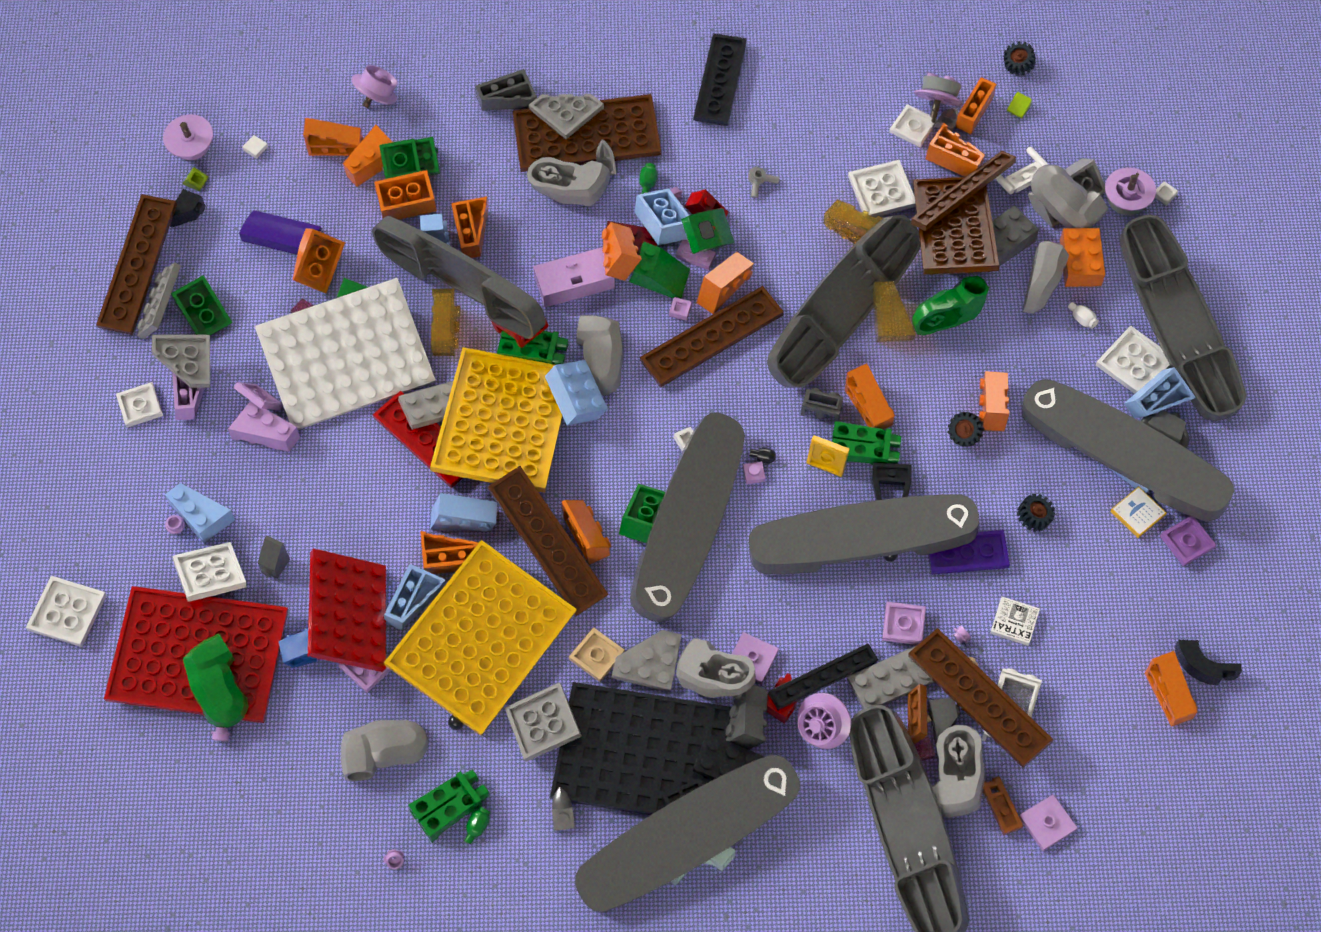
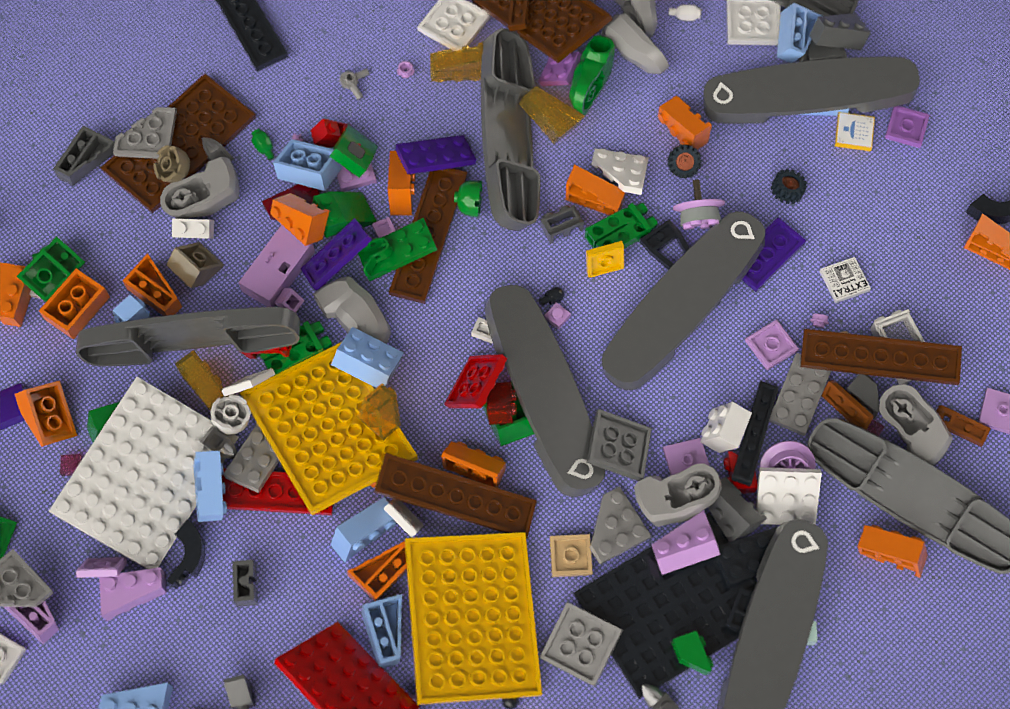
camera: 40 degrees left, 5 degrees up
(328, 438) = (193, 555): none -> black arch
(347, 480) = (243, 590): none -> dark grey brick
(379, 396) = (209, 486): none -> light blue wedge
(414, 372) = (218, 441): none -> flat silver plate
(440, 356) = (230, 414): none -> white cylinder
(474, 343) = (248, 382): none -> white tile
(496, 526) = (403, 517): none -> white tile
(516, 230) = (194, 264): none -> dark tan slope
(537, 203) = (193, 228): none -> white brick
(544, 433) = (381, 411): none -> clear yellow wedge
(561, 314) = (293, 300): none -> lavender plate
(562, 144) = (172, 164): none -> dark tan cylinder
(617, 793) = (691, 652): none -> green slope
(623, 298) = (335, 254): none -> dark purple plate
(641, 470) = (476, 381): none -> red plate
(642, 499) = (501, 404): none -> clear red brick
(673, 329) = (396, 249): none -> green plate
(686, 712) = (686, 545): none -> lavender wedge
(706, 601) = (619, 445): none -> dark grey plate
(765, 332) = (469, 198): none -> green cylinder
(769, 279) = (435, 154): none -> dark purple plate
(801, 653) = (725, 427): none -> white brick
(801, 740) = (788, 494): none -> white plate
(809, 195) = (405, 65): none -> lavender plate
(851, 850) = (893, 548): none -> orange wedge
(910, 399) = (622, 168): none -> white plate
(929, 285) = (559, 73): none -> medium lavender plate
(939, 475) = (699, 212): none -> piece
(1007, 307) = (635, 44): none -> light grey piece
(1195, 419) = (840, 31): none -> dark grey wedge

